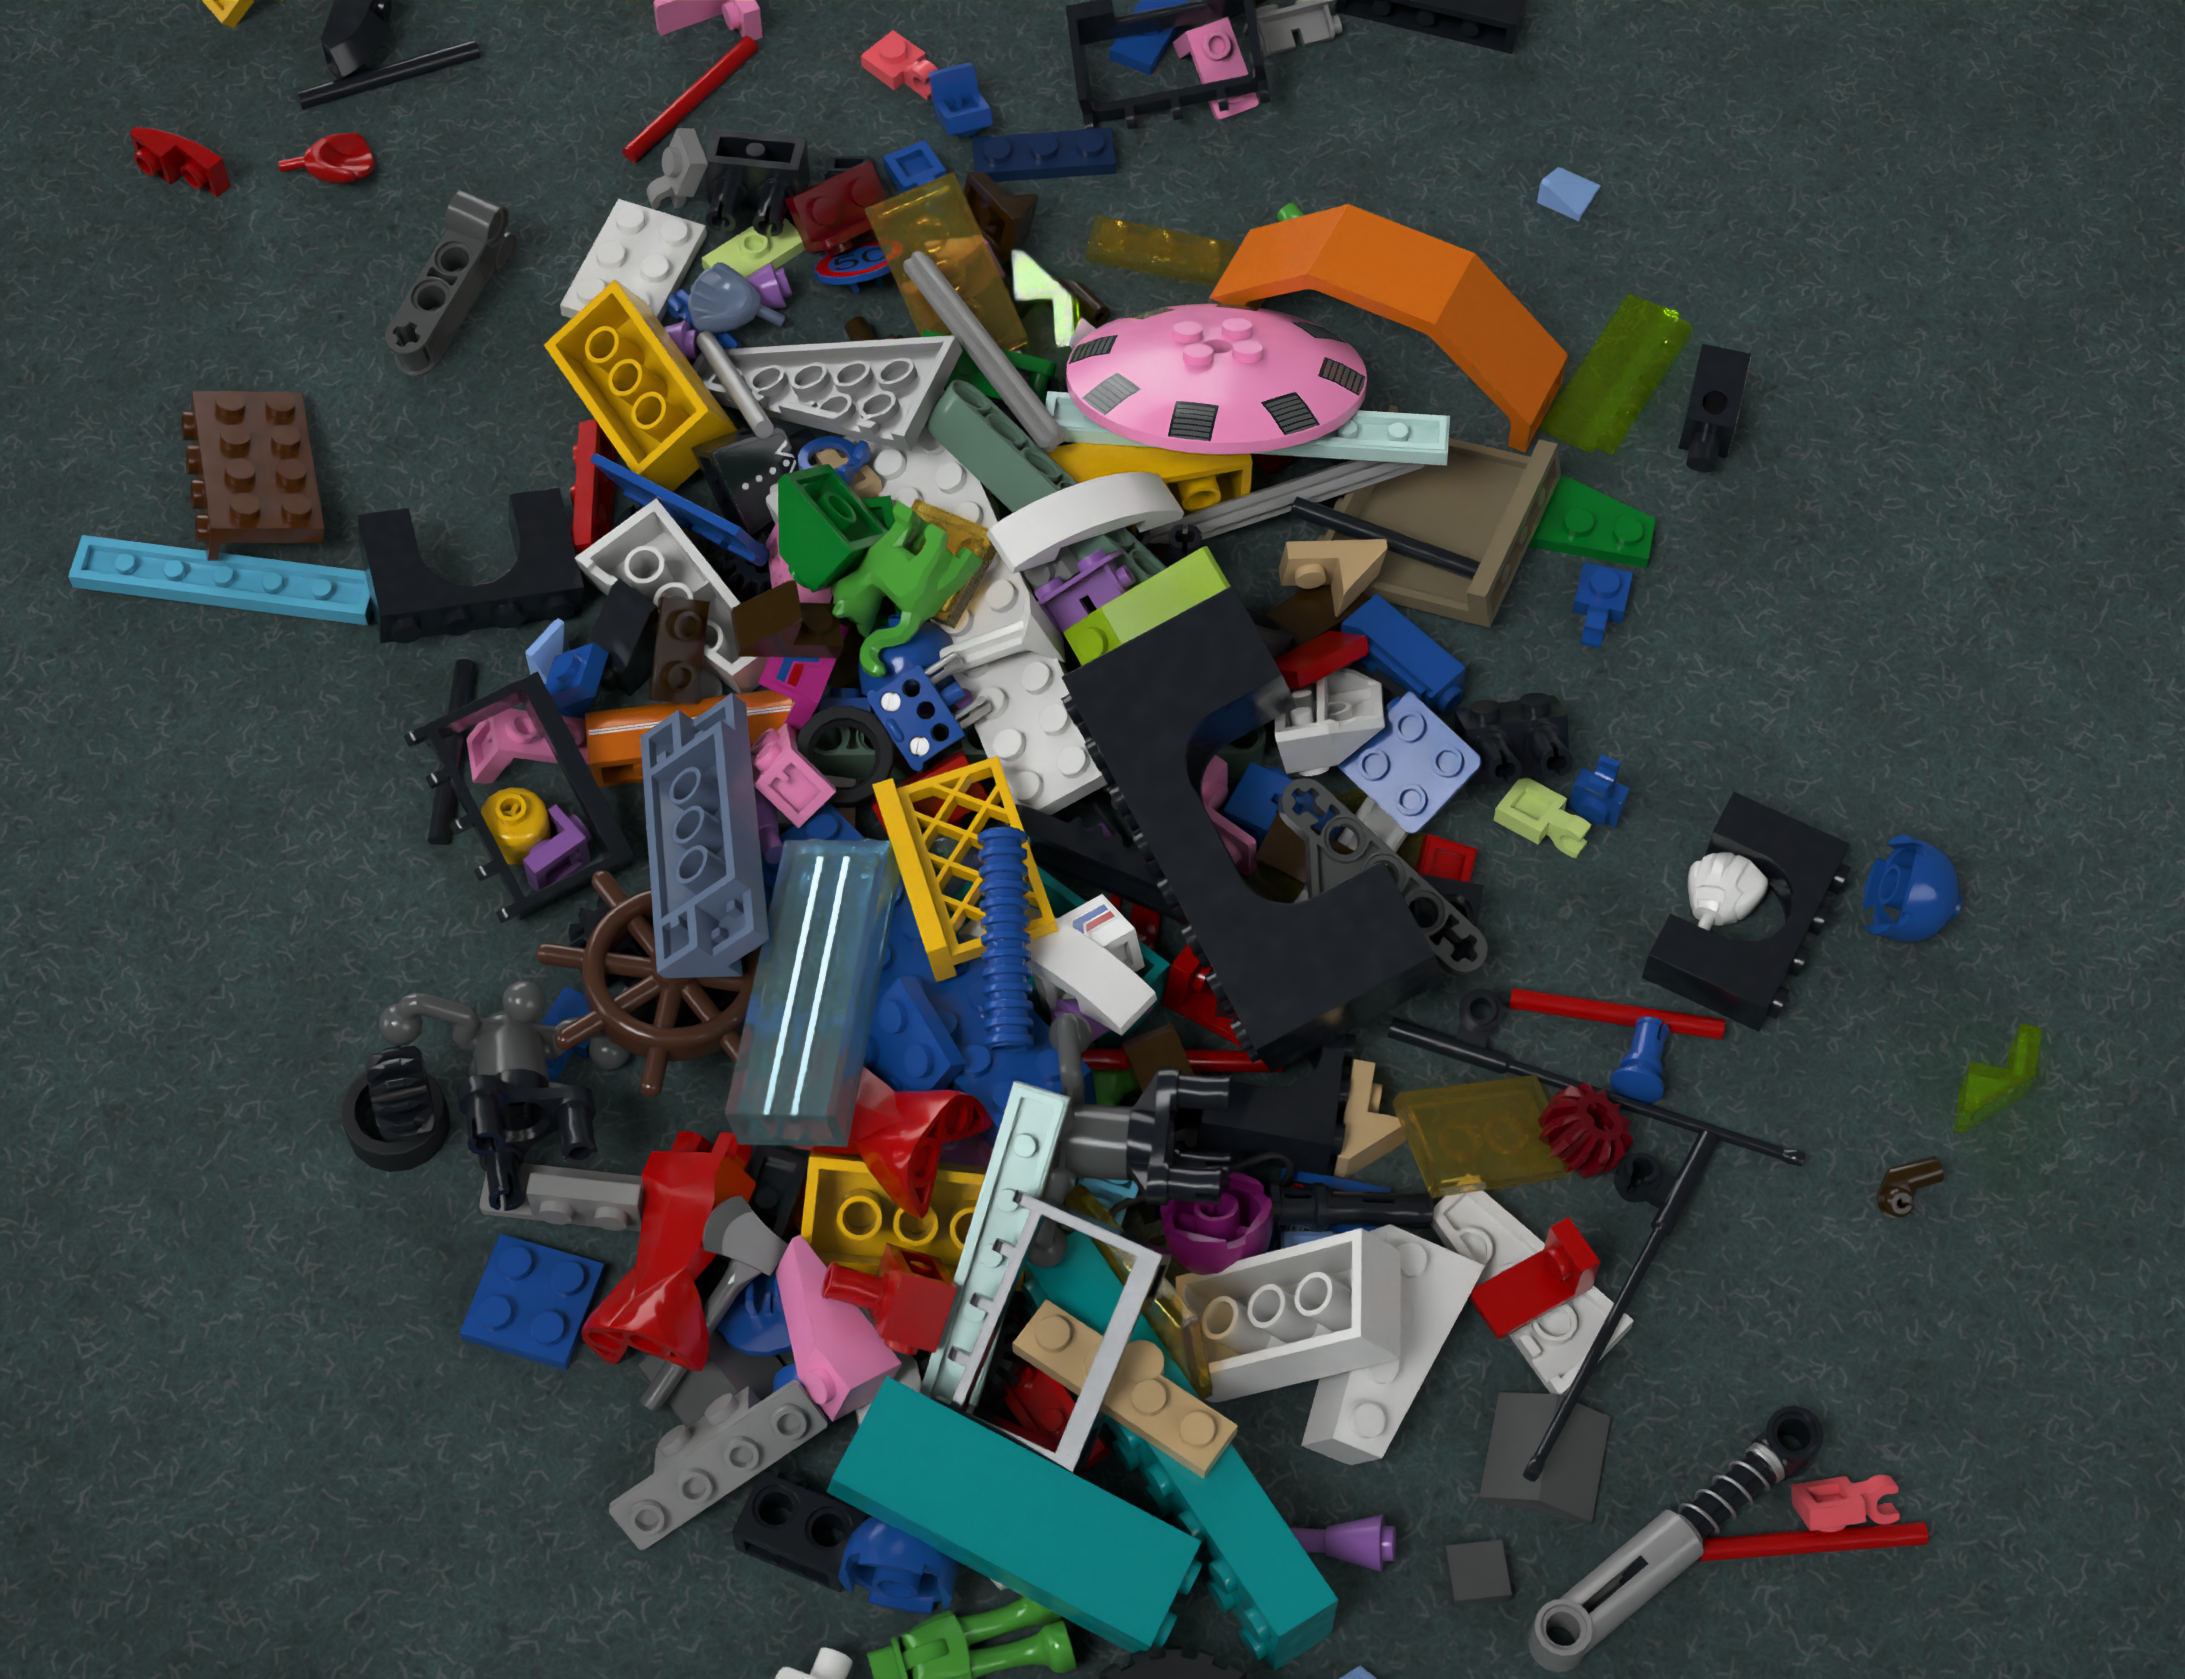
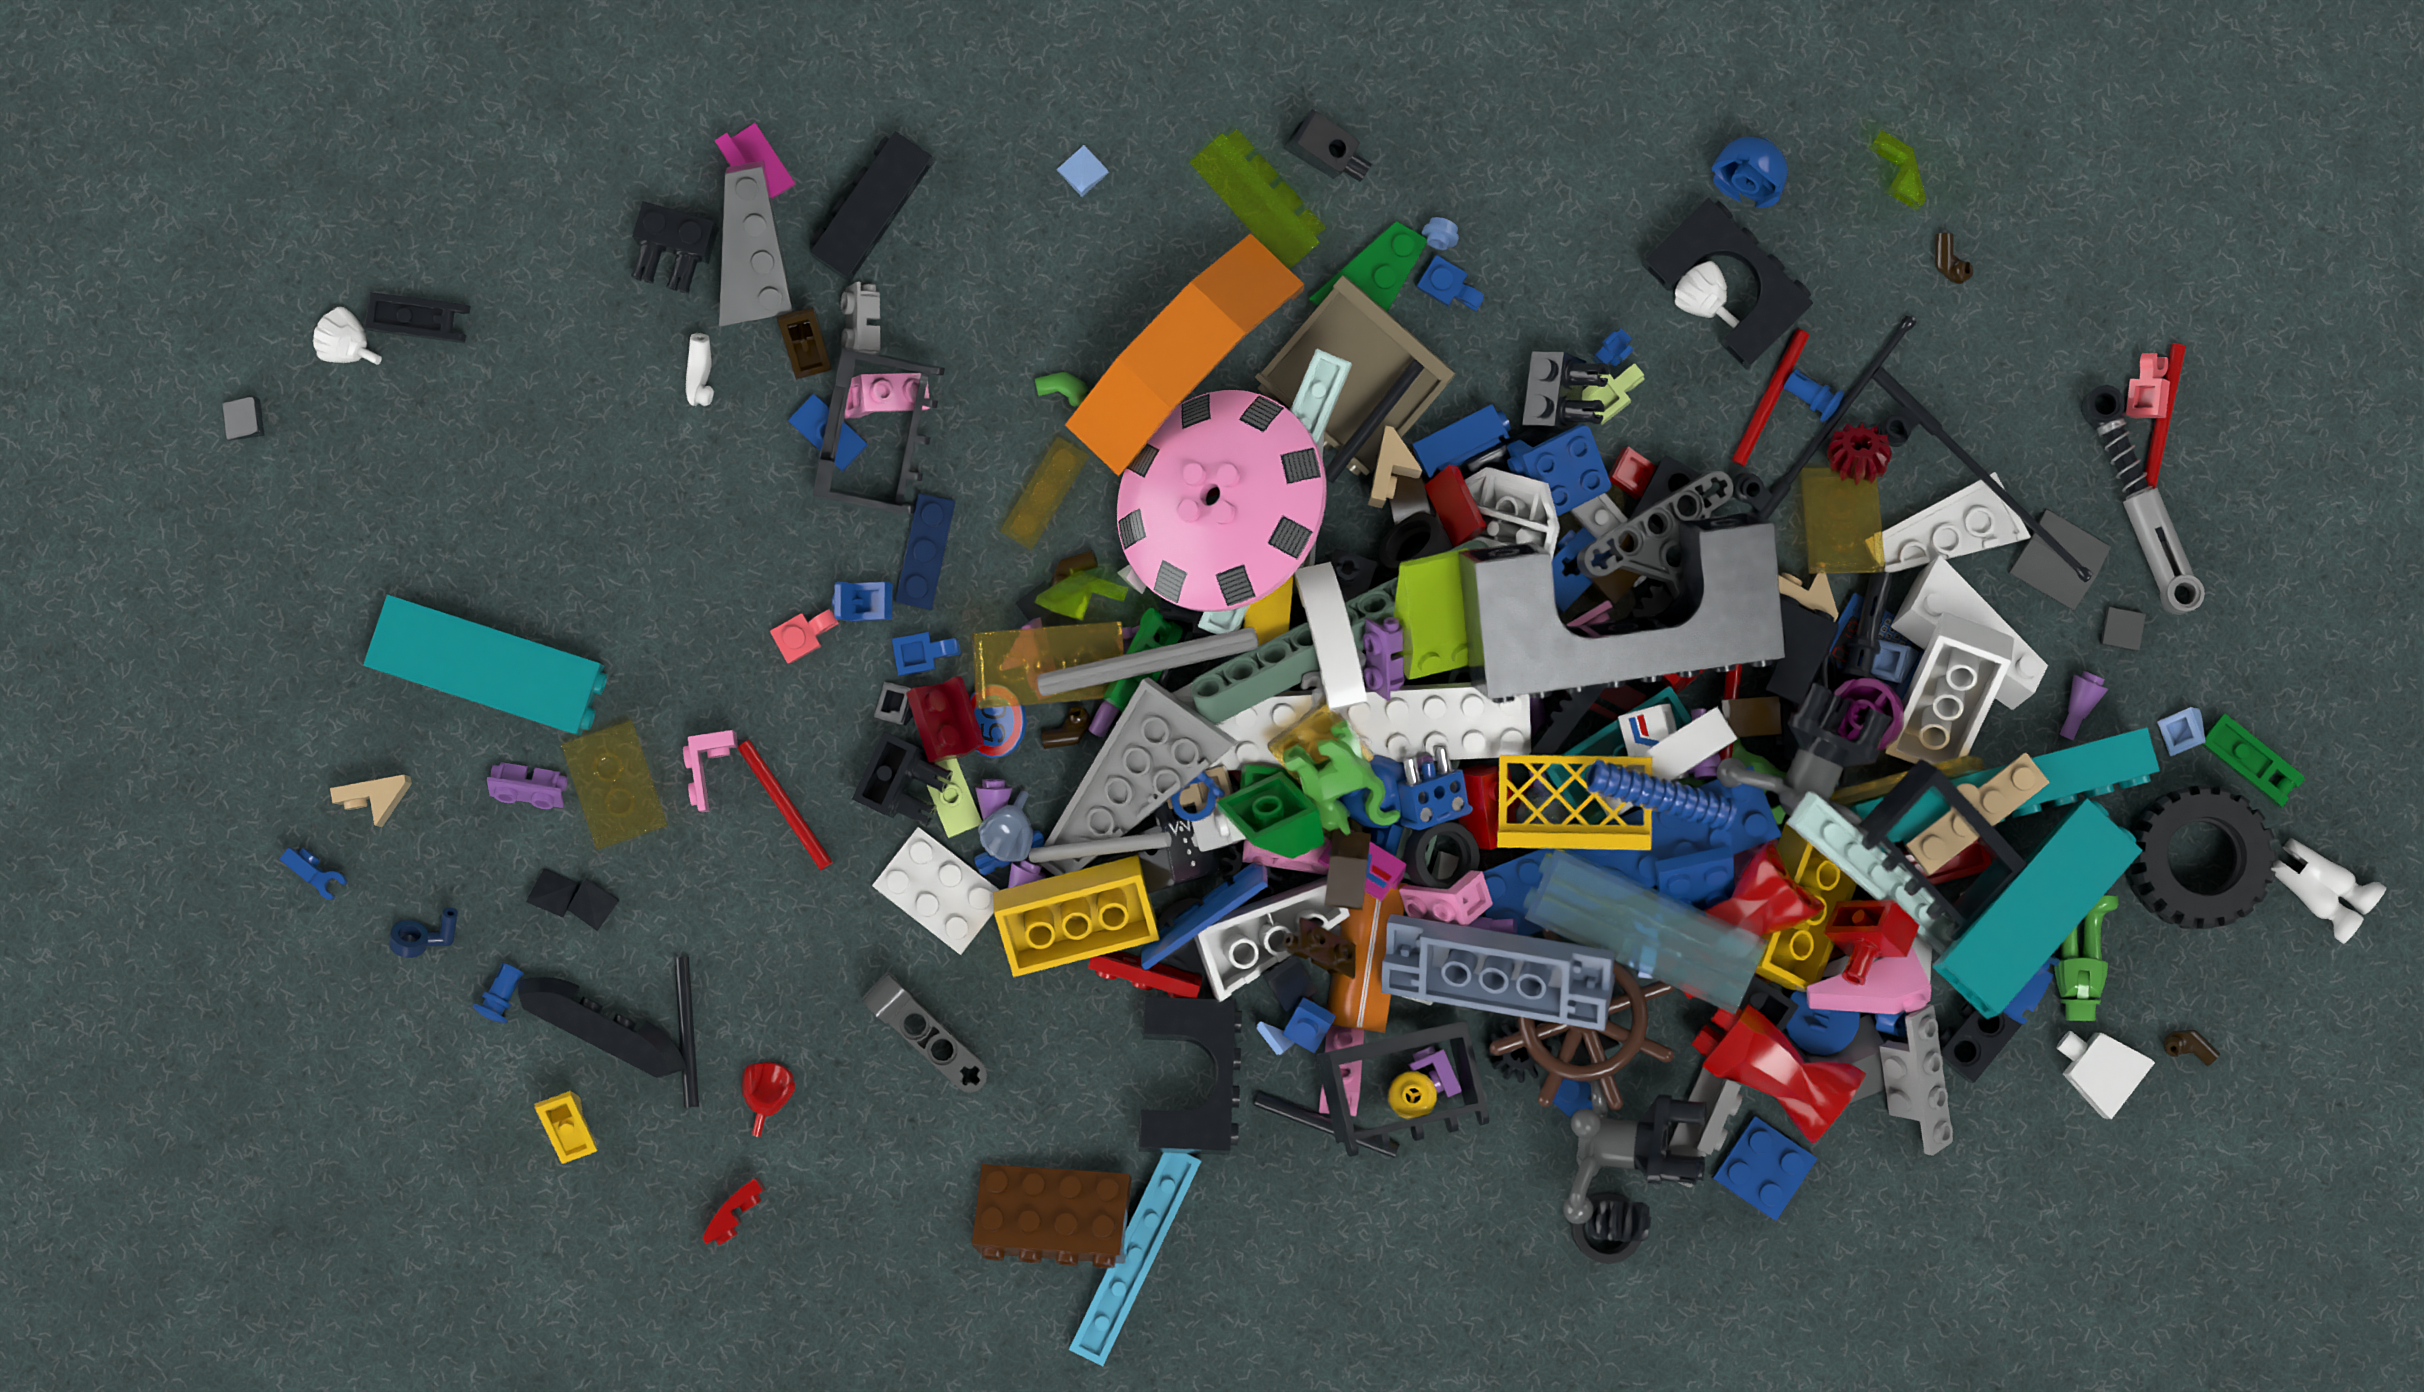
camera: 70 degrees left, 25 degrees up
(683, 169) = (874, 831): light grey plate -> none
(753, 1249) = (1797, 1023): dark grey piece -> none
(1000, 217) = (991, 608): dark brown slope -> none
(1031, 633) = (1408, 704): white piece -> none
(1539, 1282) = (1961, 528): red bracket -> none
(1662, 569) = (1441, 233): none -> medium blue plate

